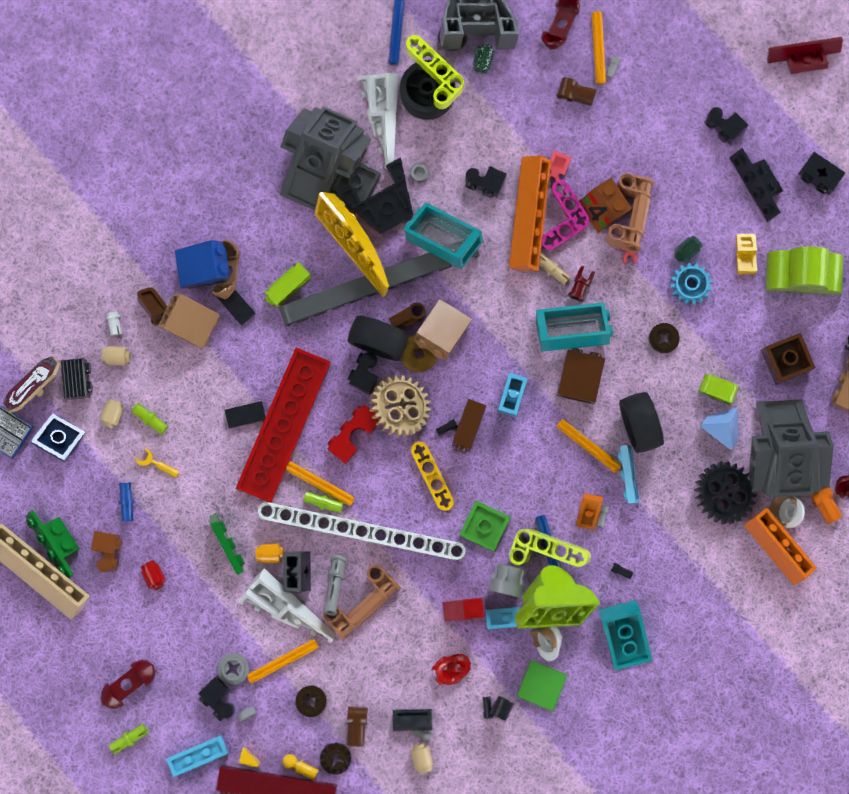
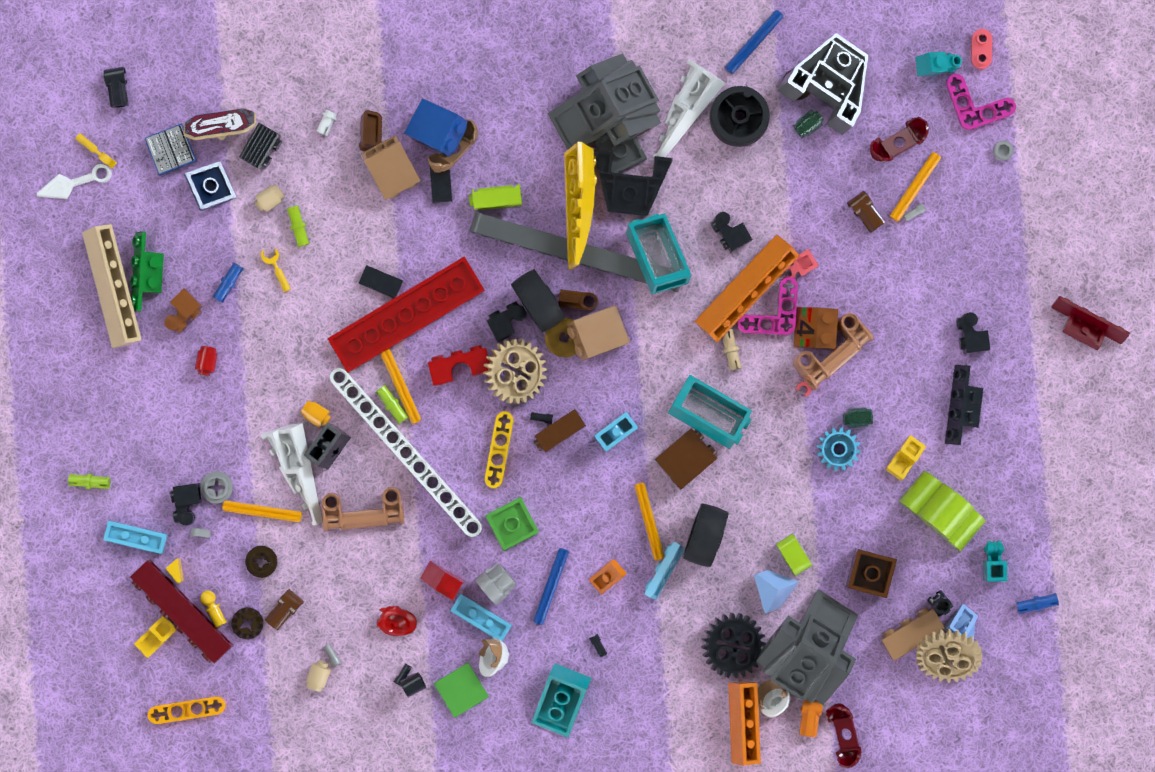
camera: 30 degrees right, 5 degrees up
(116, 355) = (308, 151): tan brick -> none
(140, 673) = (137, 434): dark red piece -> none
(227, 543) = (286, 379): green wing -> none
(335, 575) = (356, 474): light grey pin -> none
(412, 719) = (333, 638): black tile -> none
(419, 172) = (680, 182): light grey tile -> none
(432, 68) = (754, 103): neon yellow beam -> none
(551, 551) = (551, 586): neon yellow beam -> none
(555, 601) = (522, 629): lime brick -> none
(580, 285) = (744, 381): dark red piece -> none
(602, 515) = (621, 584): light grey piece -> none
(664, 328) = (787, 470): dark brown gear -> none
(830, 177) = (1029, 443): black brick -> none

